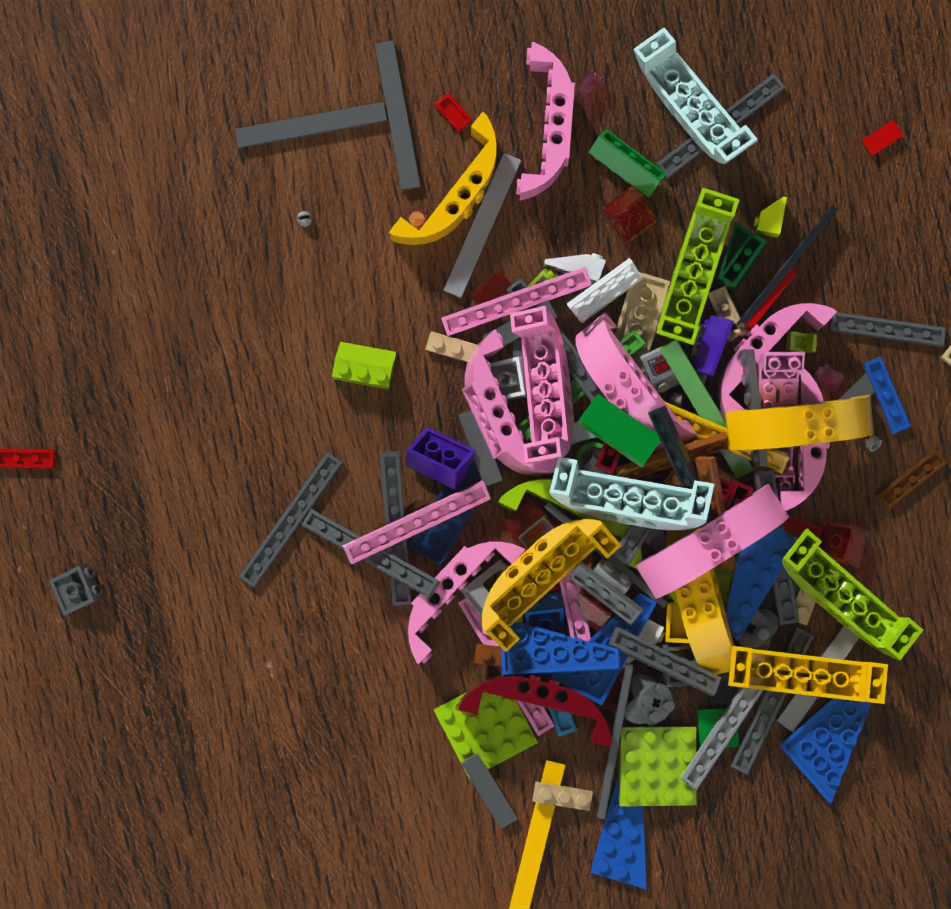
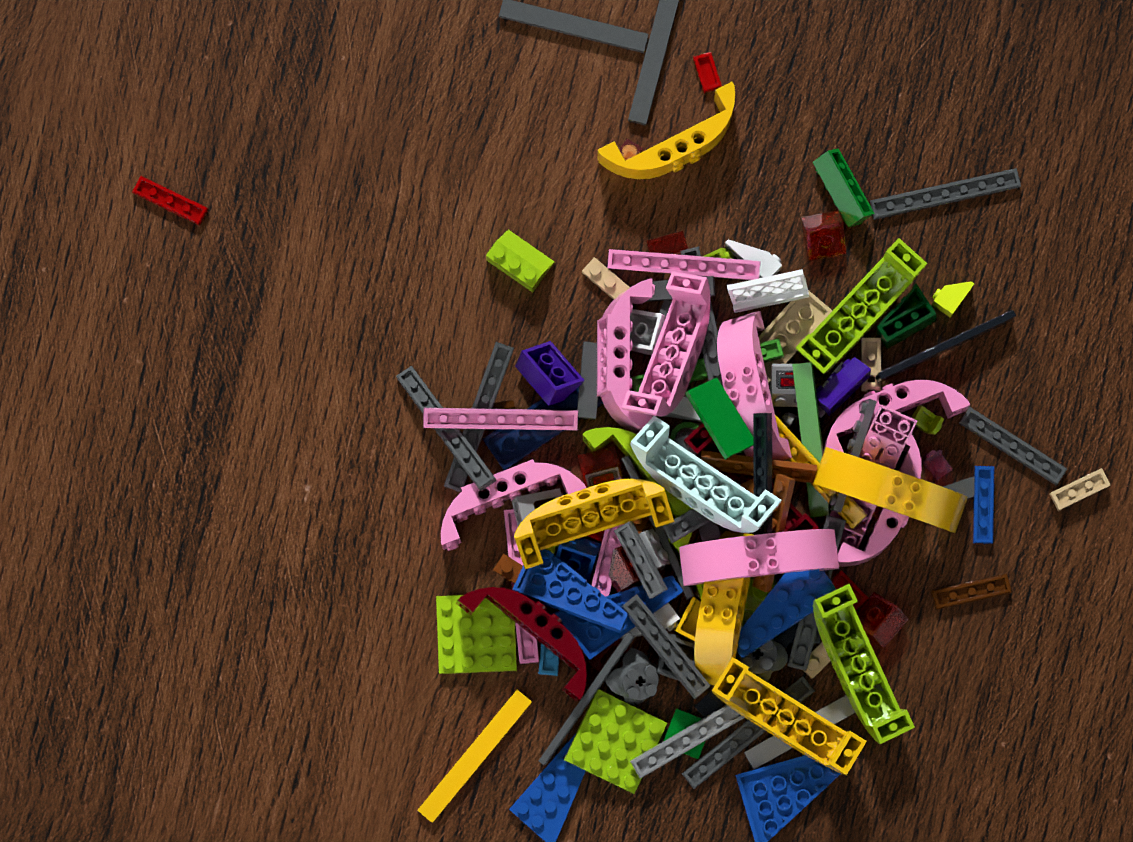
camera: 25 degrees right, 5 degrees down
(76, 589) = (167, 339): dark grey plate -> none
(290, 520) = (388, 367): dark grey tile -> none
(304, 222) = (526, 108): light grey hinge -> none
(482, 225) = (685, 184): light grey tile -> none
(489, 790) = (452, 691): dark grey tile -> none
(561, 93) = (782, 151): bright pink slope -> none
(562, 796) = (516, 728): tan plate -> none
(586, 86) = (839, 102): clear pink bracket -> none
(690, 100) = (926, 154): light aqua slope -> none
(770, 300) = (917, 368): red tile -> none
(873, 443) = (951, 542): light grey hinge -> none
(882, 138) = (1088, 271): red tile -> none

